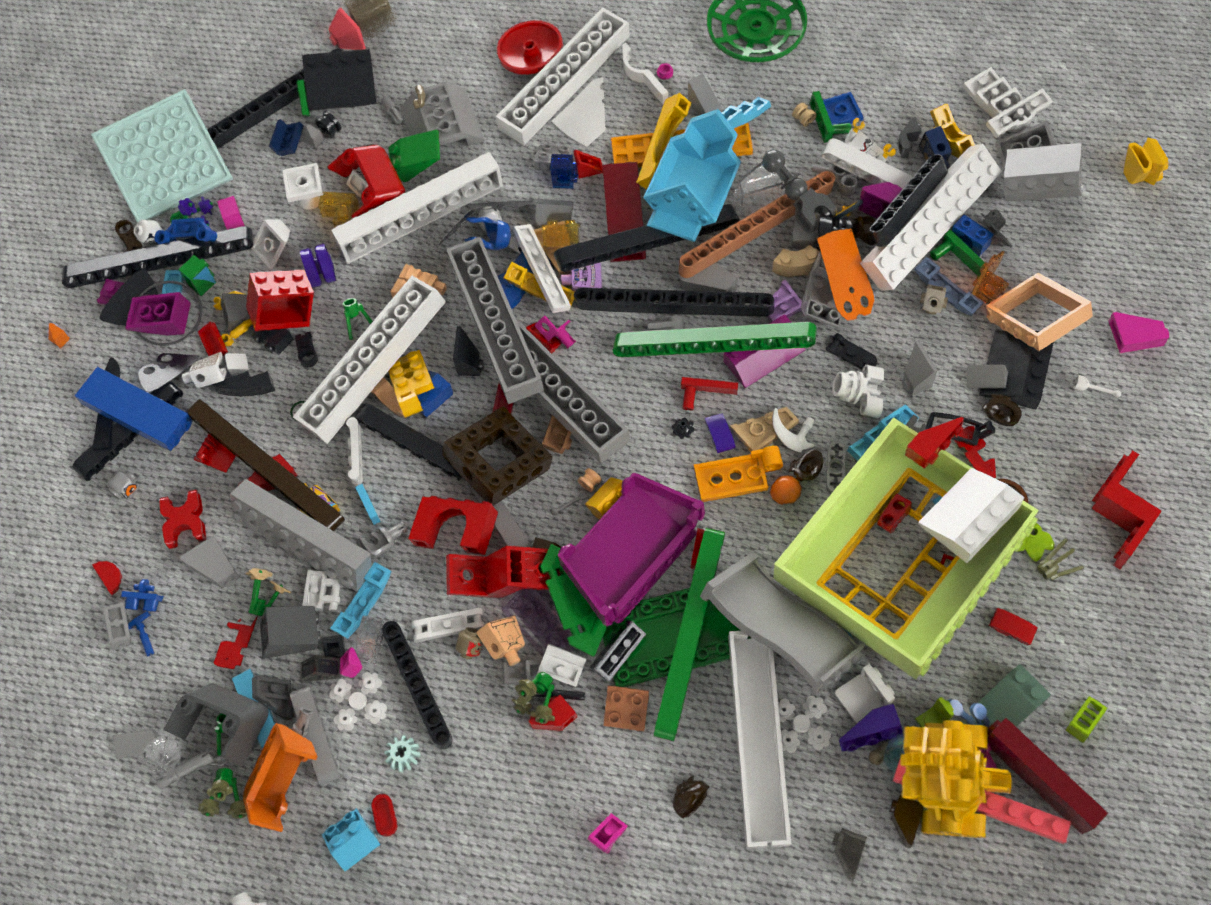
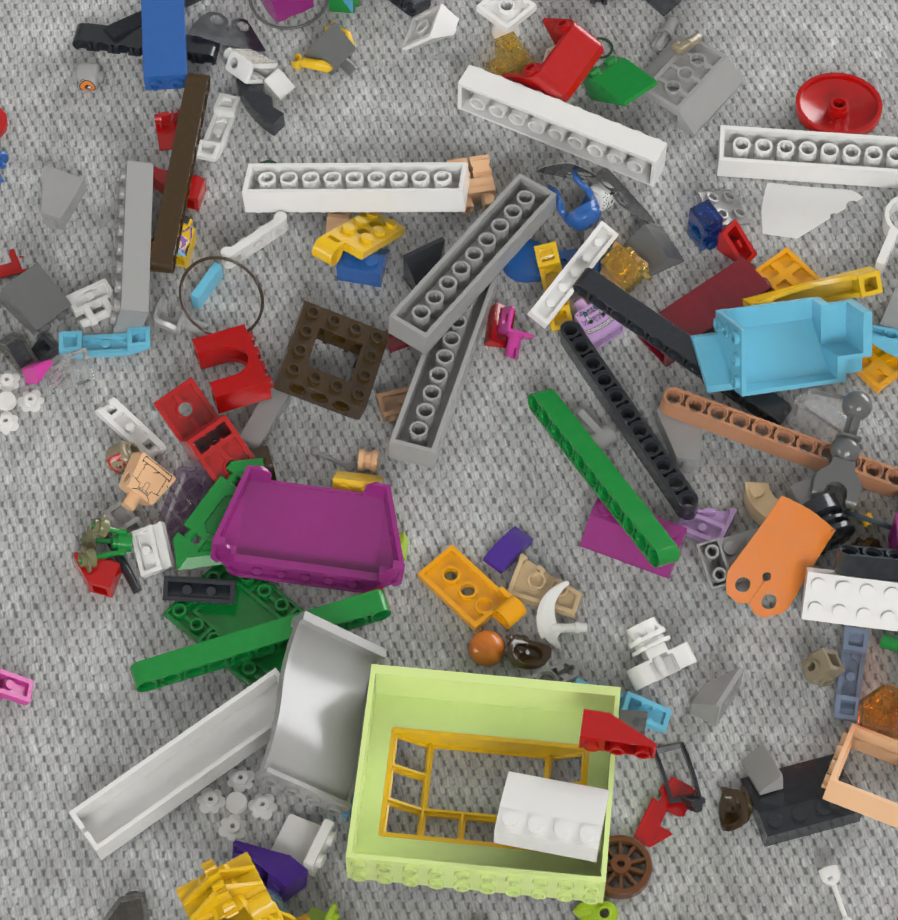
camera: 50 degrees right, 5 degrees down
(182, 518) = (87, 145): red piece -> none
(212, 339) = (287, 49): red tile -> none
(238, 418) = (219, 128): none -> white slope
(257, 604) = (45, 259): plant -> none
(274, 340) = (328, 92): black brick -> none
(279, 299) = (360, 71): red container -> none
(305, 348) = (336, 131): black piece -> none
(320, 265) = (428, 81): dark purple wheel -> none
(352, 319) = (395, 149): green plant -> none
(376, 470) = (230, 260): none -> dark brown piece
(405, 437) = (299, 266): black beam -> none
(420, 693) = (51, 448): black beam -> none
(626, 708) = (148, 632): nougat hinge -> none
(683, 428) = (488, 512): black plant -> none
(689, 796) = (95, 740): dark brown hat -> none
(692, 385) = (543, 492): red piece -> none
(851, 353) = (697, 625): black plate -> none
(894, 513) = (527, 761): red leg -> none

